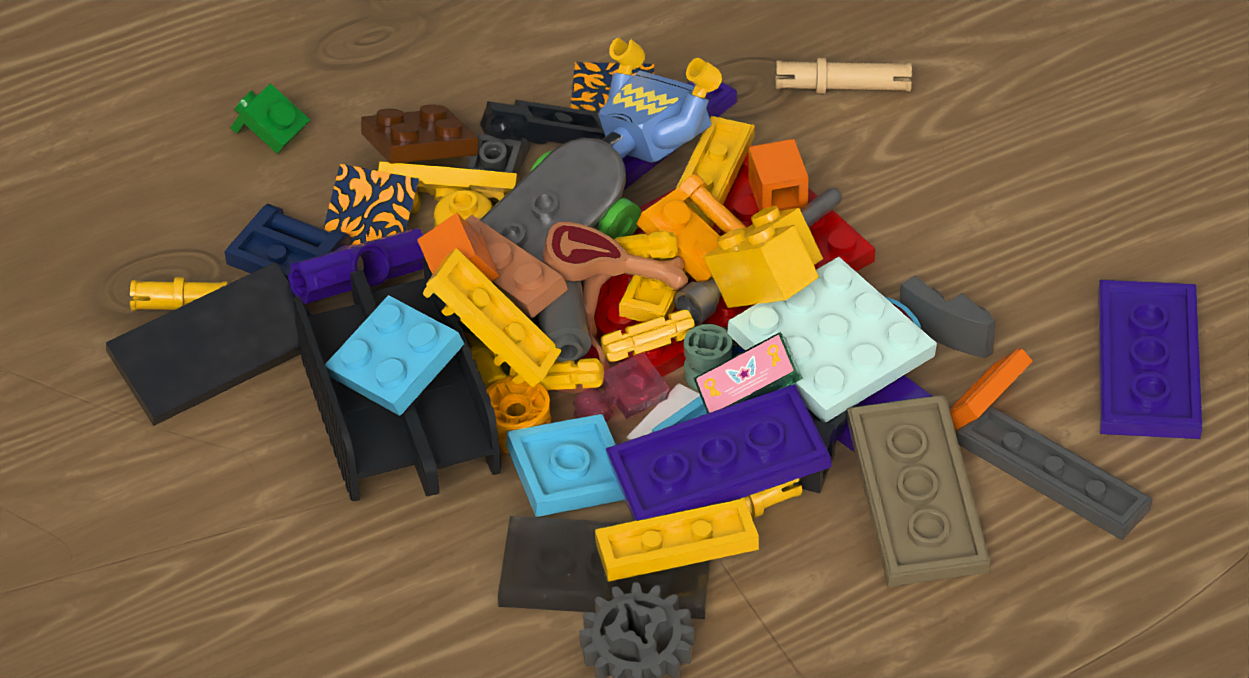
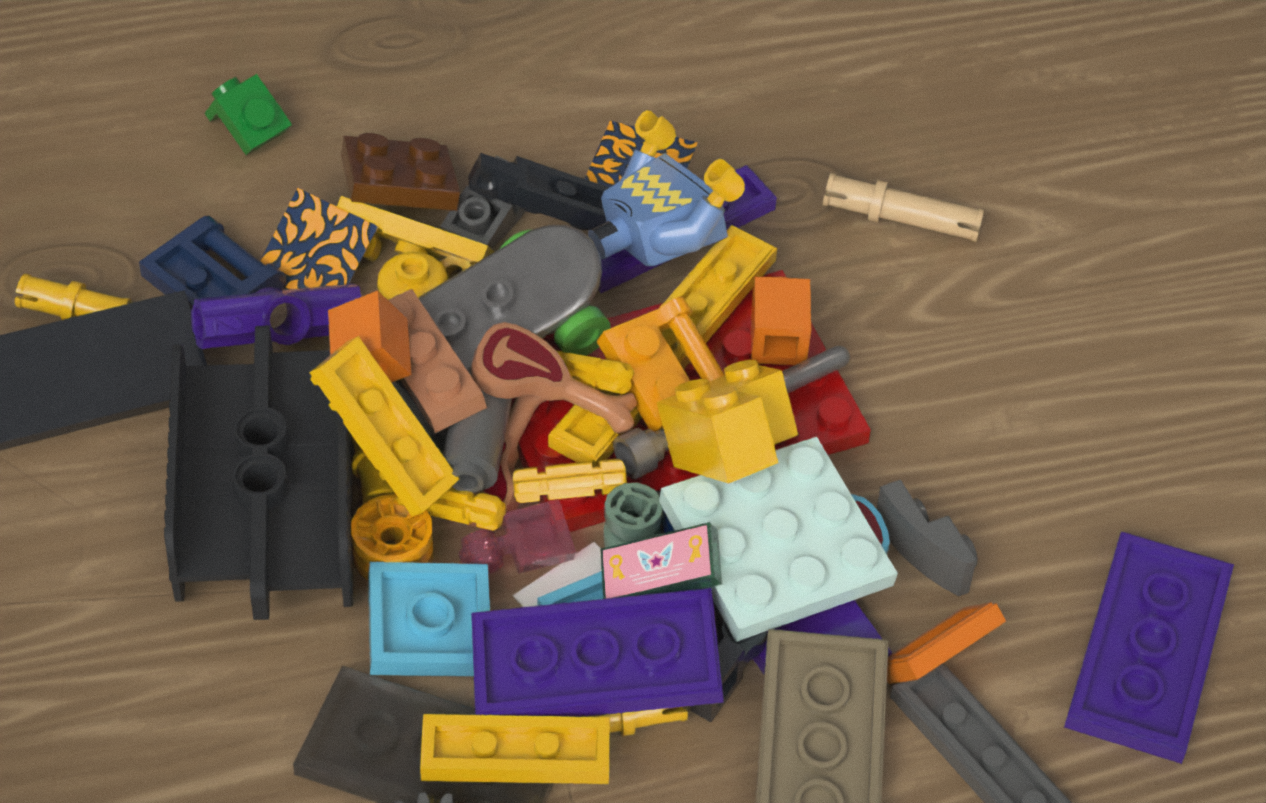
camera: 10 degrees right, 5 degrees up
(394, 355) = (261, 443): medium azure plate -> none

